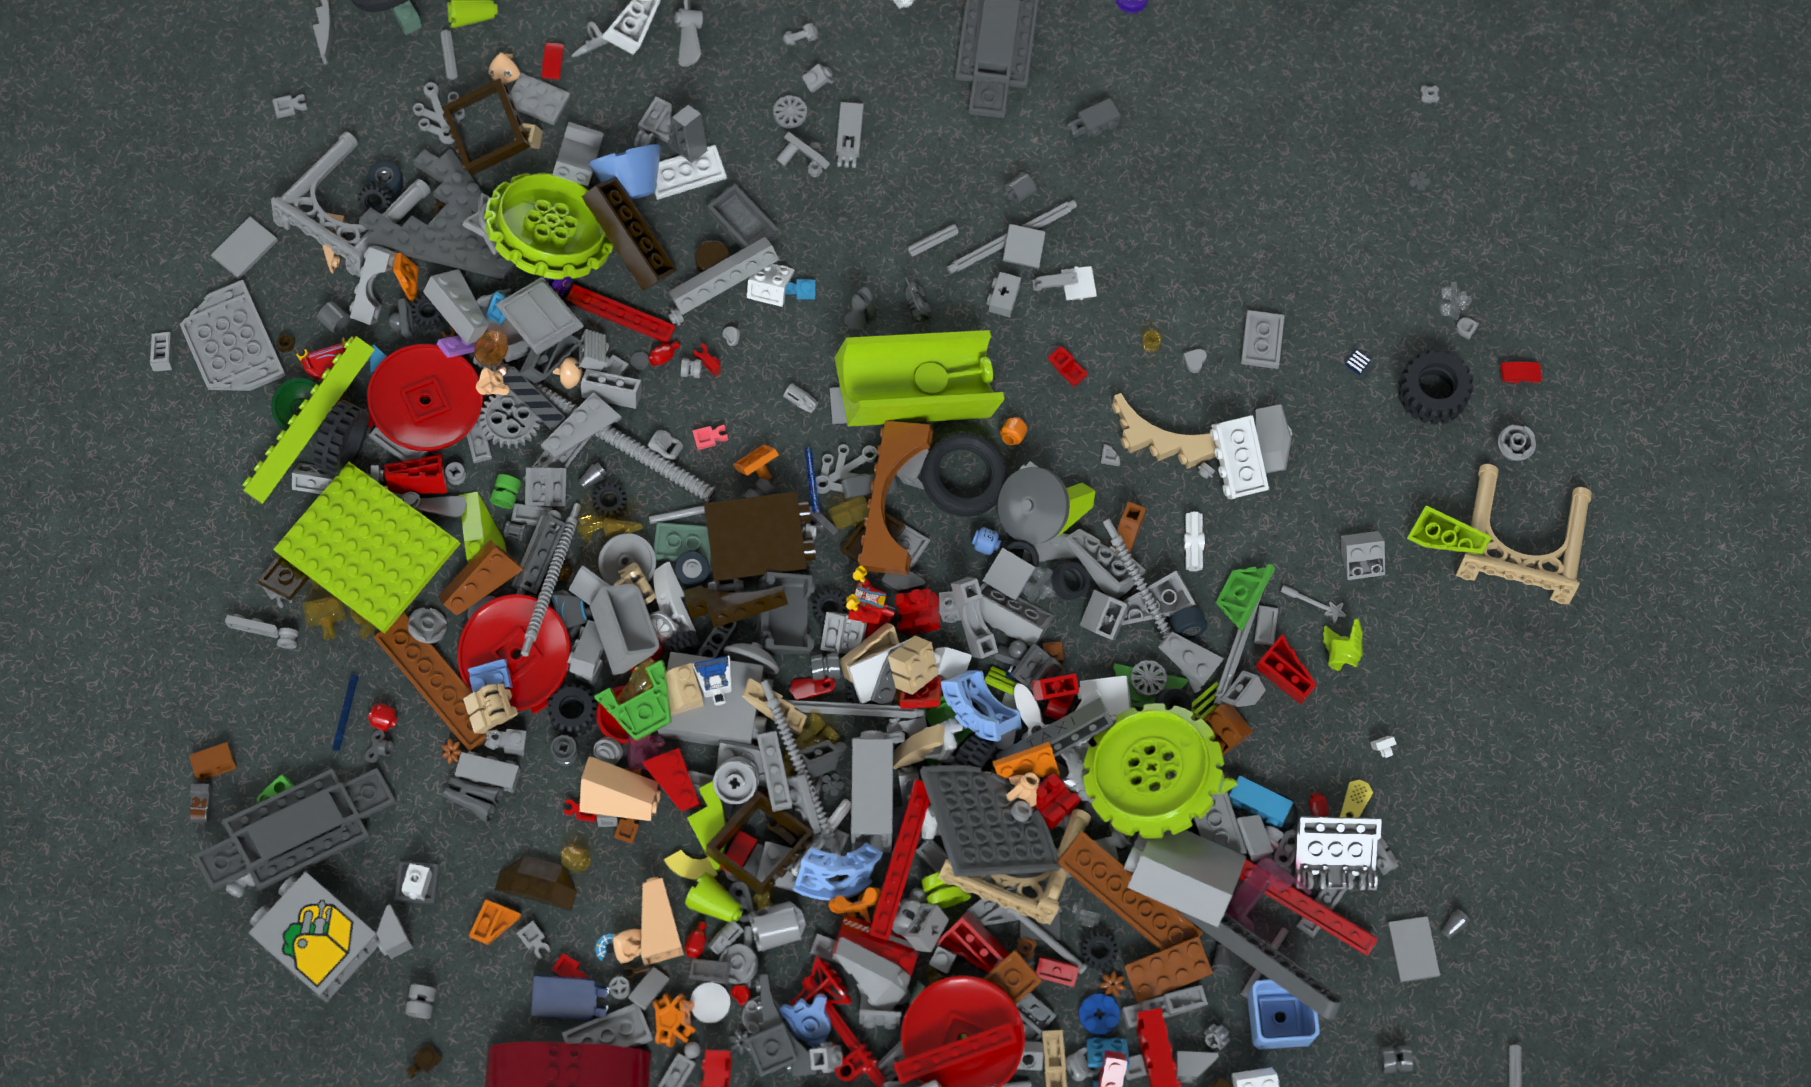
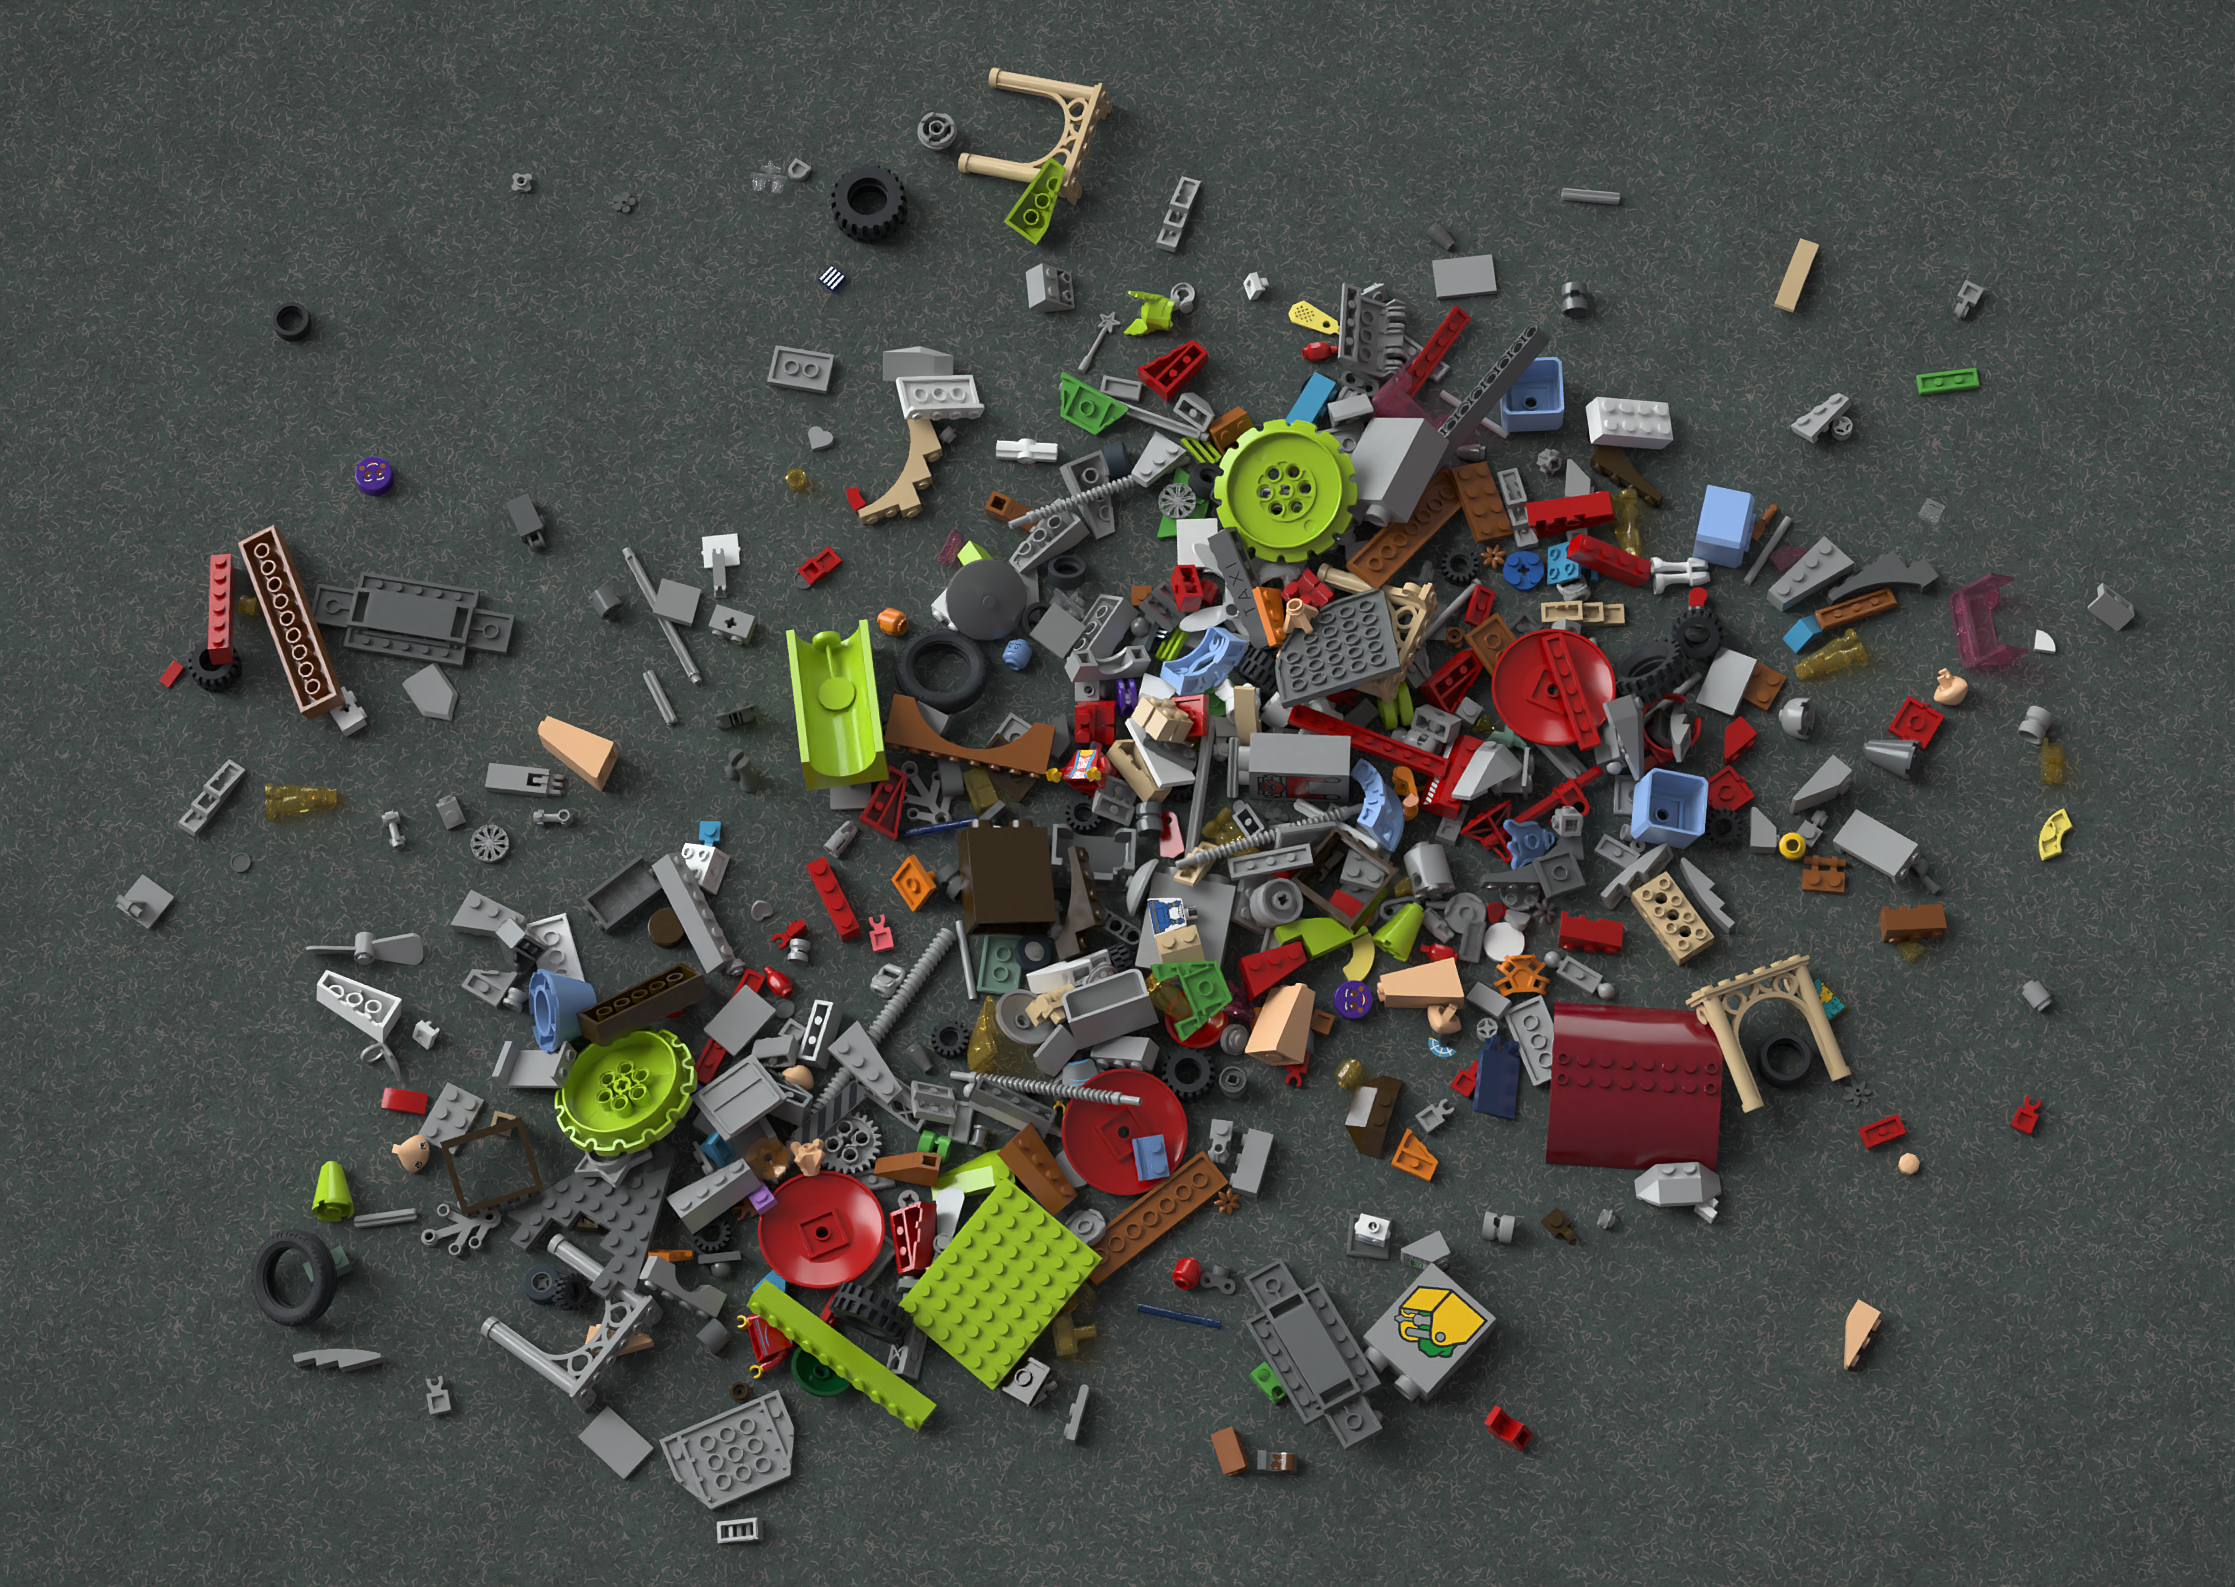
camera: 80 degrees left, 0 degrees up
(222, 1014) = (1507, 1430): none -> red brick
(287, 638) = (1093, 1376): light grey wheel -> none
(480, 808) = (1292, 1170): dark grey piece -> none
(483, 470) = (911, 1167): none -> dark orange slope
(489, 707) = (1185, 1152): tan hips -> none
(612, 72) = (425, 1034): none -> white tile
(623, 321) = (740, 1021): none -> light grey tile
(636, 971) = (1470, 1016): dark brown hand -> none
(648, 859) = (1352, 999): none -> dark purple head
(719, 112) = (483, 916): none -> light grey wedge
(732, 1015) = (1517, 919): none -> light grey tile
(741, 393) = (833, 899): none -> red brick
(796, 144) = (535, 836): light grey piece -> none
(830, 431) = (885, 804): none -> red wedge
(873, 173) = (580, 750): none -> light nougat slope
(930, 57) = (432, 693): none -> light grey tile
(946, 638) = (1125, 698): none -> dark purple head
(1021, 811) = (1323, 620): light grey tile -> none
(1092, 479) = (950, 548): none -> clear pink tile
(1104, 615) = (1106, 540): light grey slope -> none
(1109, 456) = (925, 530): light grey tile -> none
(1135, 393) = (854, 499): none -> red piece
(1358, 682) = (1186, 305): none -> light grey piece
(1455, 671) = (1178, 214): none -> light grey slope
(1521, 371) = (854, 122): red slope -> none

